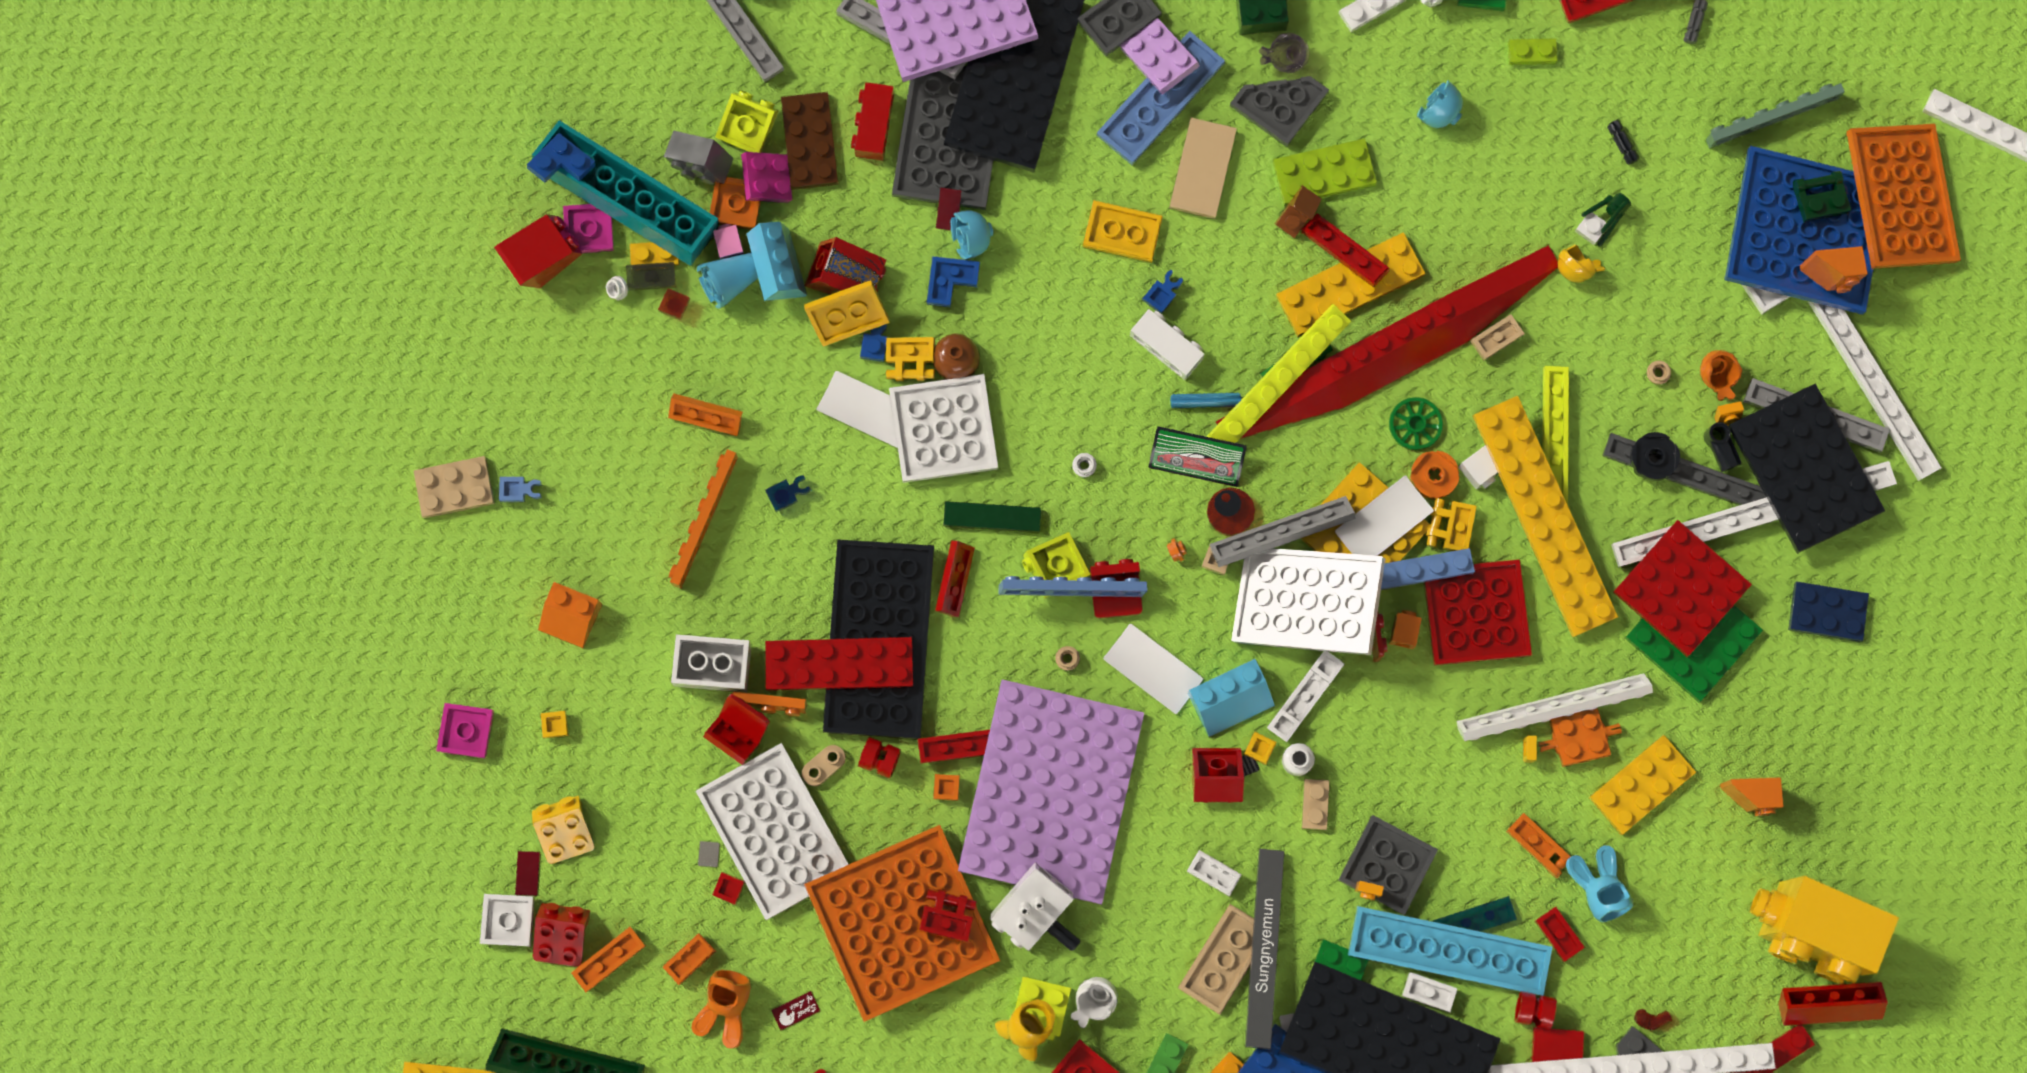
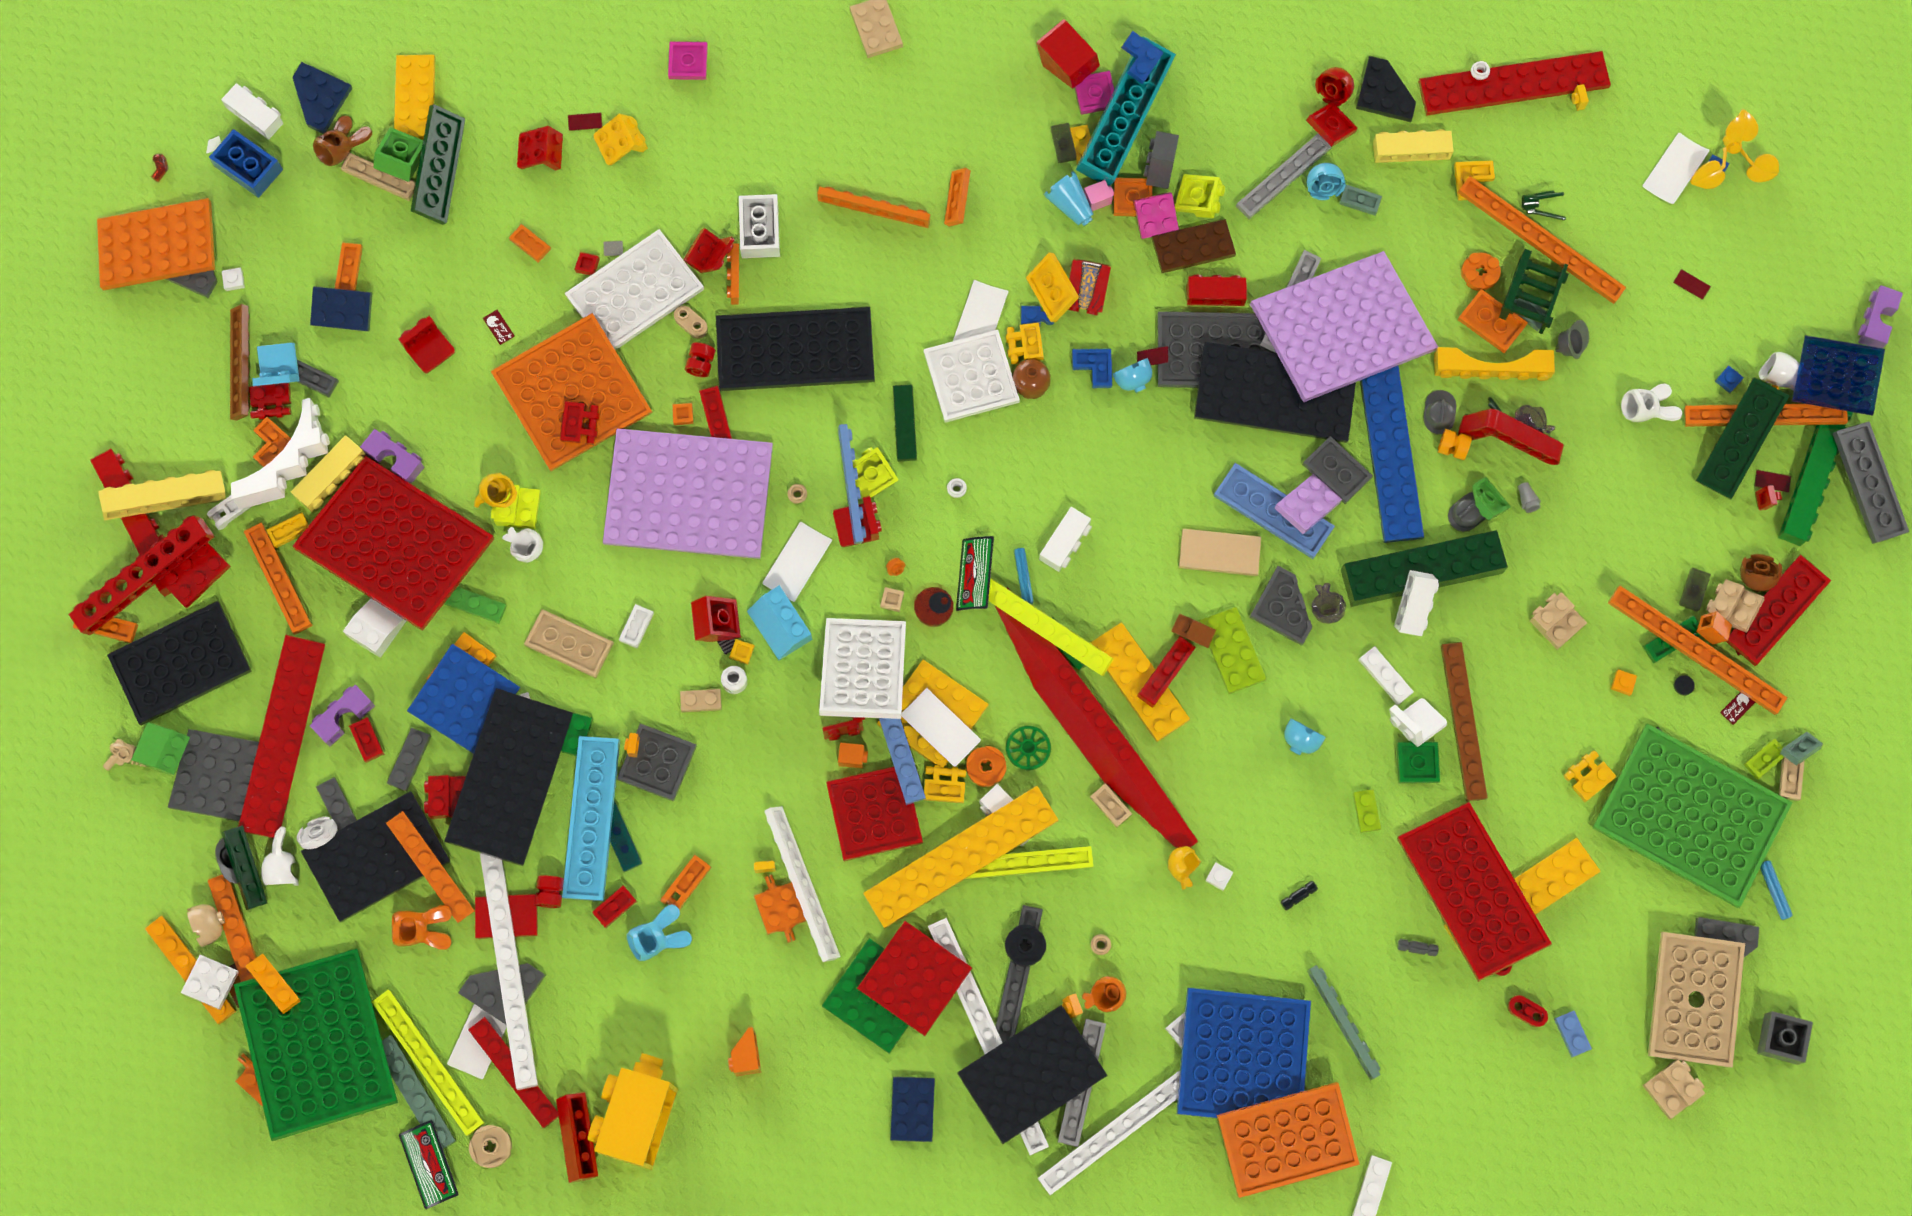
camera: 80 degrees right, 5 degrees down
(507, 920) = (546, 109): white plate -> none
(514, 489) = (880, 70): medium blue plate -> none
(554, 724) = (700, 122): yellow plate -> none
(569, 615) = (787, 121): orange slope -> none
(608, 959) = (524, 185): orange plate -> none
(617, 288) = (1049, 119): white plate -> none
(674, 304) = (1043, 162): clear red plate -> none
(726, 997) = (502, 272): orange piece -> none
(776, 261) = (1087, 232): medium azure slope -> none
(783, 495) = (901, 264): plate -> none
(839, 663) = (770, 320): red plate -> none
(955, 578) = (850, 399): red plate -> none
(1033, 910) = (591, 488): white piece -> none
(1122, 231) = (1156, 495): yellow tile -> none
(1161, 294) = (1106, 530): blue plate -> none
(1264, 949) = (578, 670): dark grey tile -> none
(1282, 531) = (919, 644): light grey plate -> none
(1305, 695) = (785, 681): white slope -> none
(1429, 992) = (556, 806): white plate -> none
(1615, 208) = (1238, 894): dark green plant -> none
(1642, 785) = (746, 964): yellow plate -> none
(1650, 1021) = (550, 988): clear red arm -> none
(1724, 449) = (1040, 1004): black piece -> none
(1822, 204) = (1268, 1068): dark green plate -> none
(1836, 268) = (1208, 1077): orange slope -> none

